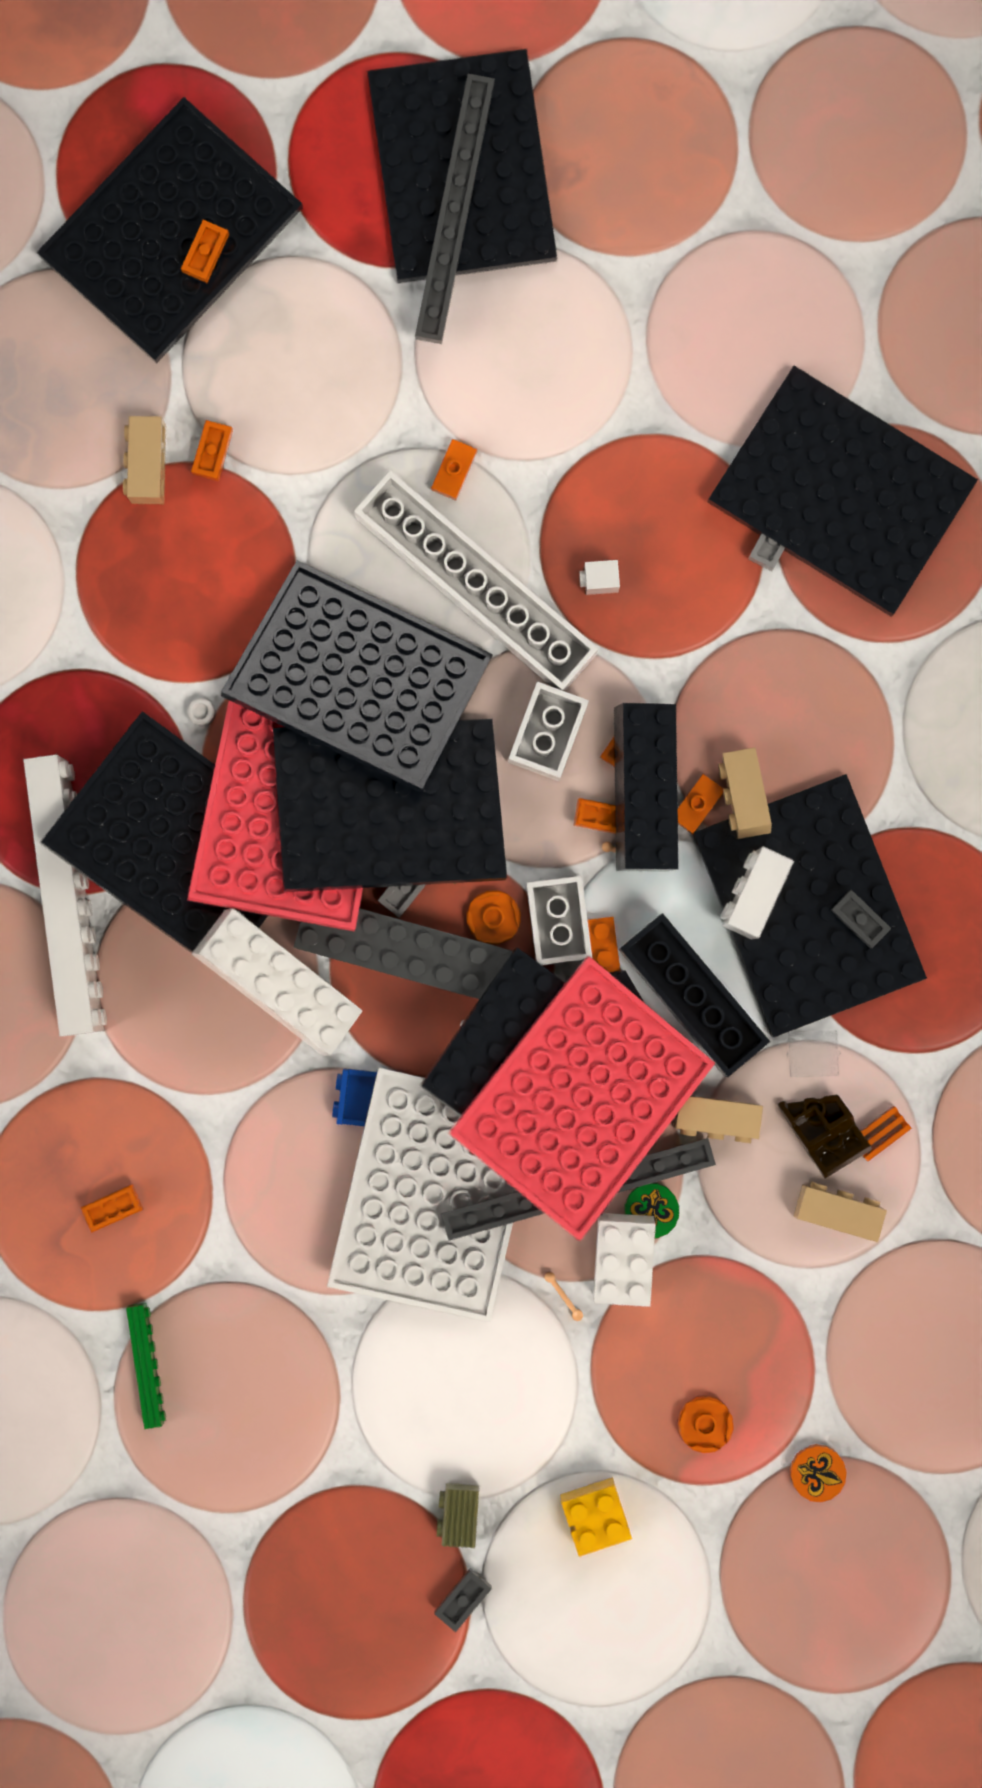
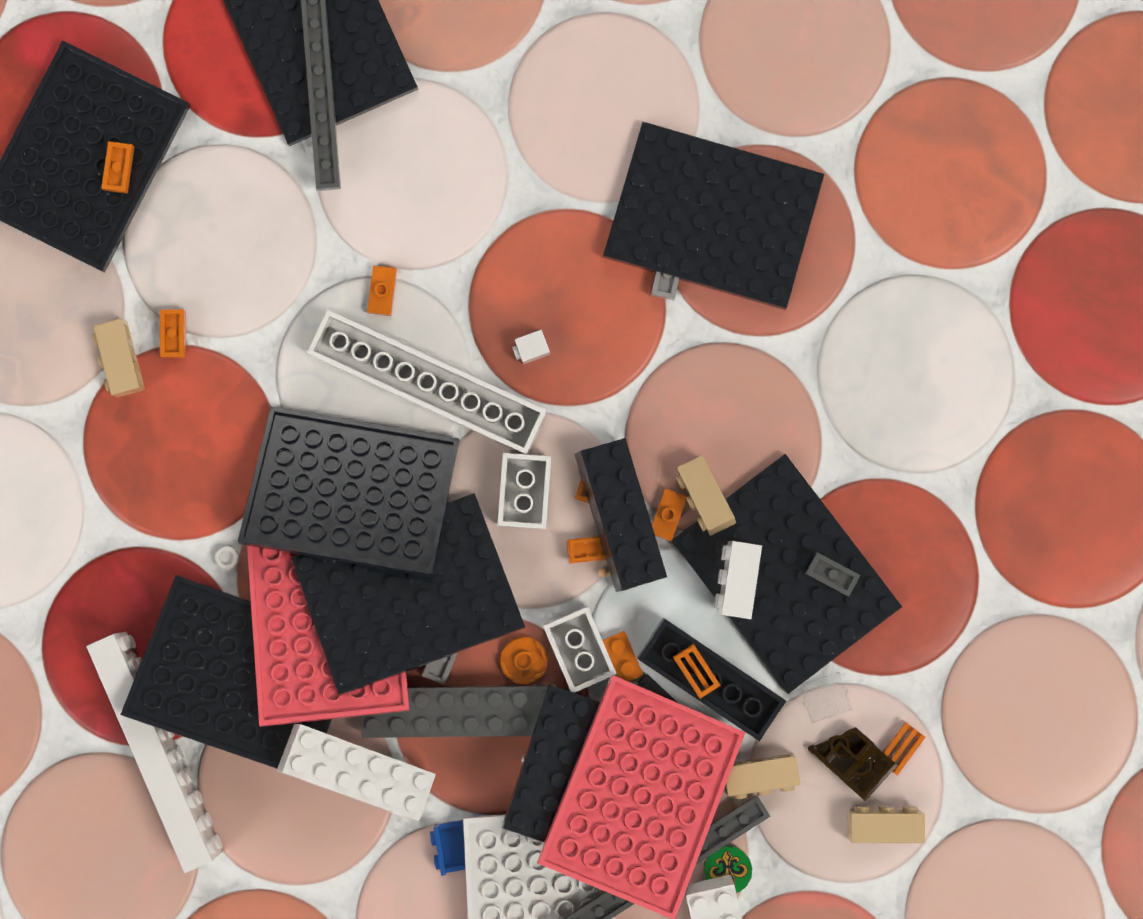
camera: 20 degrees left, 0 degrees up
(687, 1002) = (685, 653): none -> orange tile

